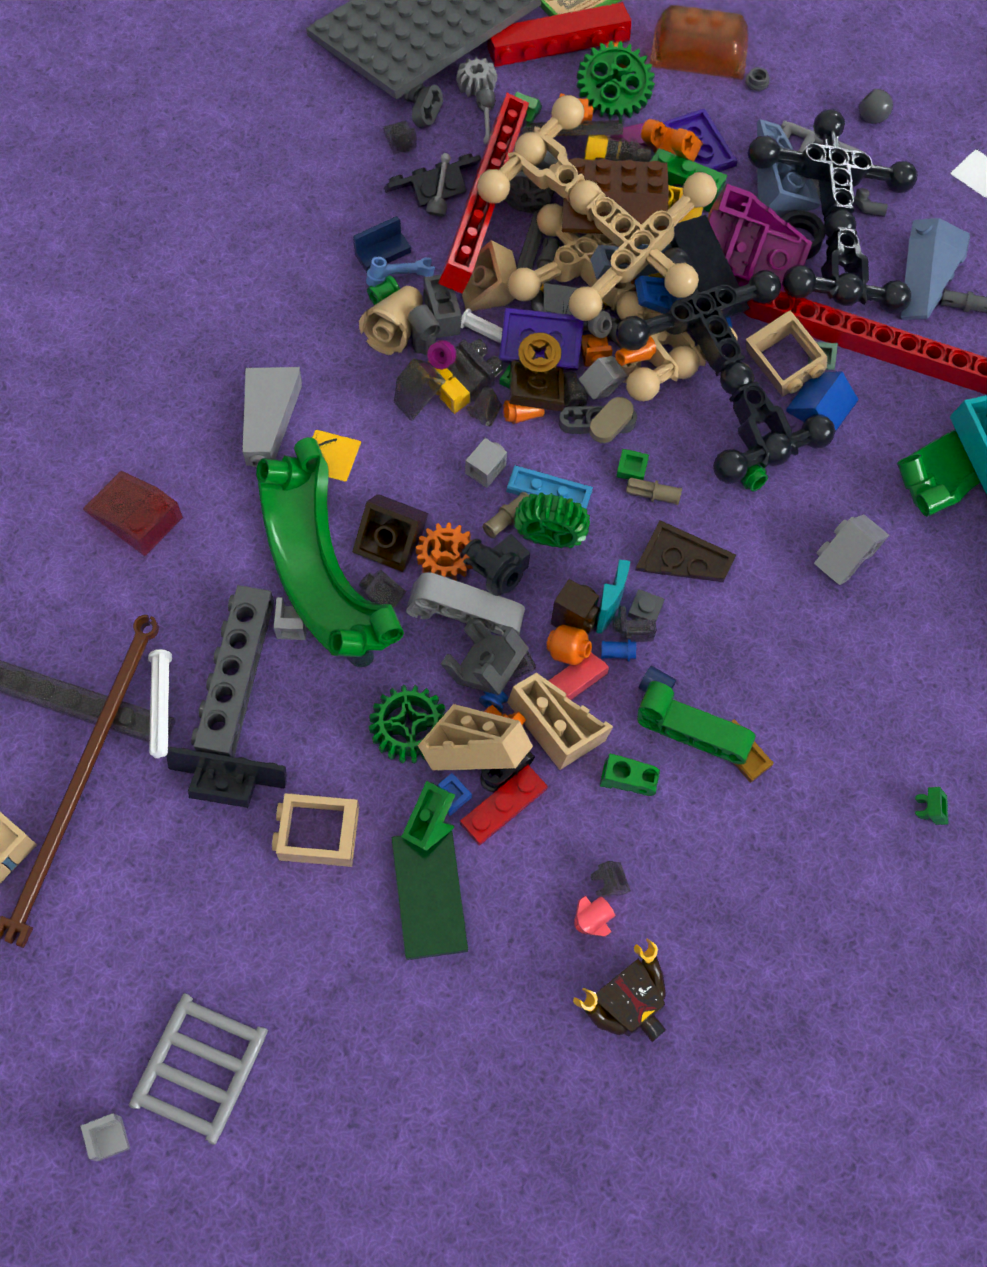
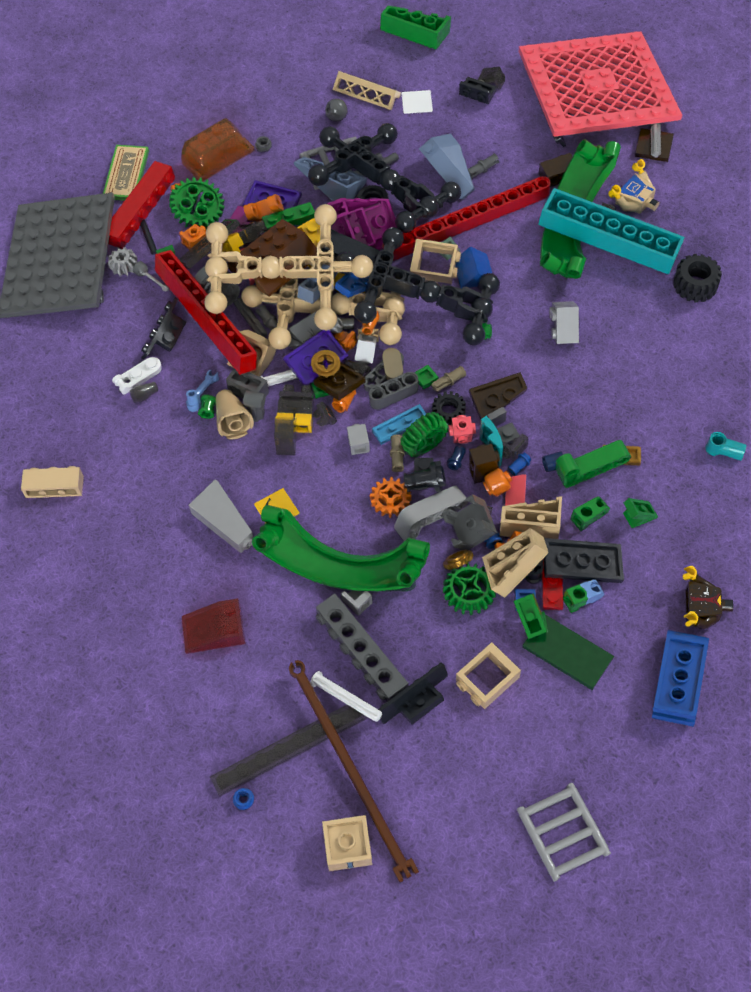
camera: 40 degrees left, 5 degrees down
(105, 1137) = (563, 903): light grey panel -> none
(162, 230) = (52, 482): none -> tan brick
(343, 221) = (142, 392): none -> clear smoke cone
(360, 201) = (138, 374): none -> white plate
(381, 241) = (177, 386): dark blue panel -> none
(381, 589) = (381, 543): clear smoke bracket -> none
(389, 532) = (353, 514): dark brown slope -> none
(400, 137) = (118, 325): clear smoke bracket -> none
(430, 101) = (114, 297): dark grey beam -> none
(432, 682) = (458, 559): none -> pearl gold gear
(437, 205) = (181, 341): hinge -> none
(441, 354) = (281, 406): magenta tile -> none
(515, 852) = (582, 595): none -> leg
(535, 73) = (148, 237): none -> black bar
(538, 1012) = (684, 660): none -> blue hinge
(556, 817) = (583, 560): none -> black plate
(557, 580) = (454, 462): none -> dark blue pin
(591, 457) = (387, 396): none -> dark grey beam
(593, 916) = (647, 586): coral piece -> none
(599, 562) = (462, 429): none -> coral brick
(613, 877) = (637, 562): clear smoke tile -> none
(619, 507) = (449, 399): none -> black tyre
(653, 578) = (498, 416): none -> flat silver tile
(683, 829) = (638, 512): none -> green slope
(870, 863) = (725, 446): none -> teal piece
(936, 806) = (724, 398): green tile -> none
(945, 111) = (370, 85): none -> tan fence

